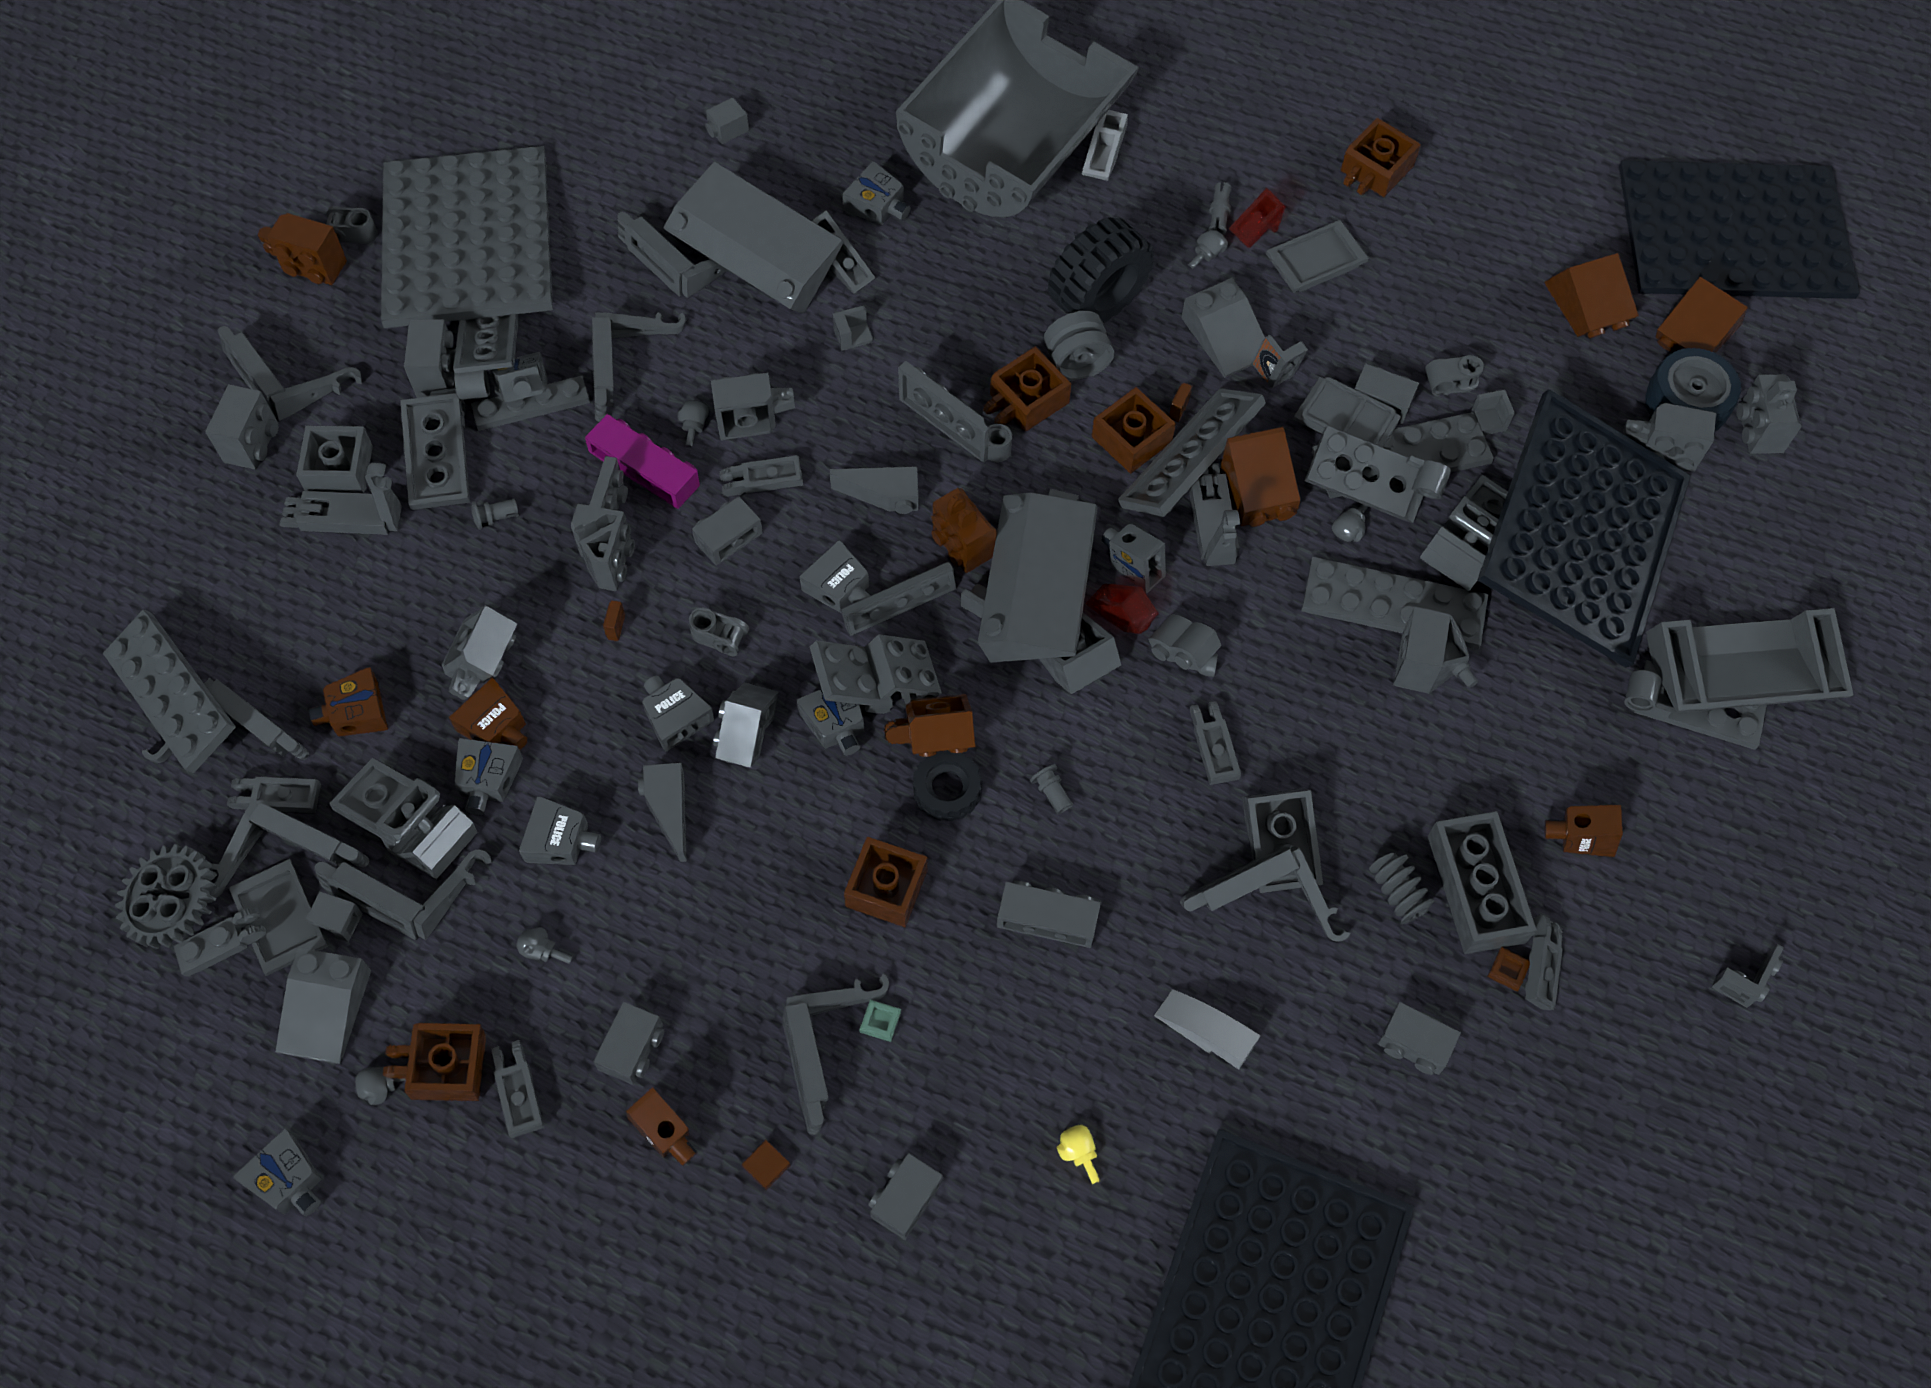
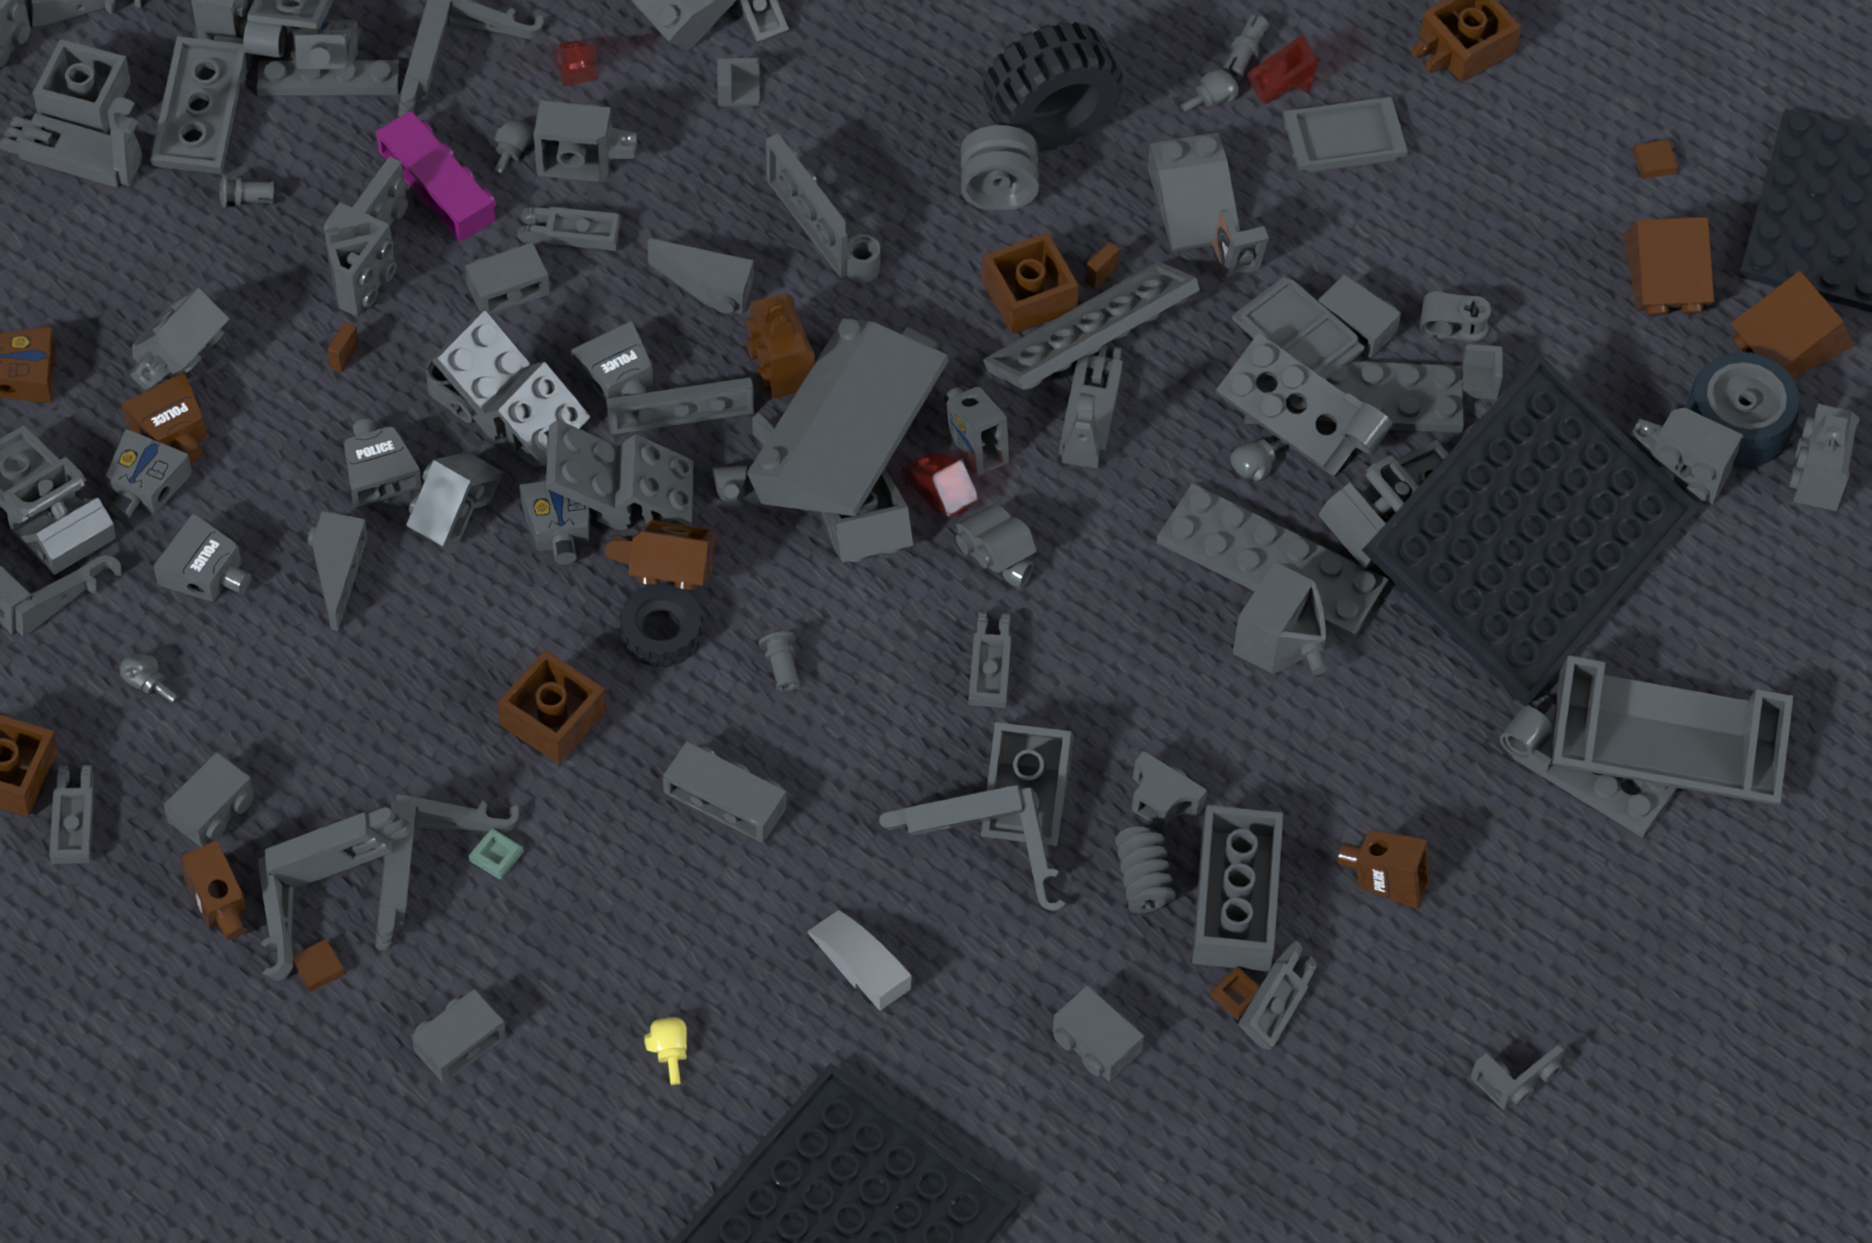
camera: 15 degrees right, 5 degrees down
(720, 341) = (575, 61): none -> clear red slope
(736, 1073) = (314, 858): none -> dark grey hinge
(762, 623) = (506, 389): none -> piece
(959, 651) = (730, 482): none -> dark grey piece
(1027, 390) = (918, 206): reddish brown hinge -> none
(1261, 477) = (1161, 374): reddish brown slope -> none
(1390, 815) = (1164, 792): none -> dark grey brick
(1545, 220) = (1655, 159): none -> reddish brown tile

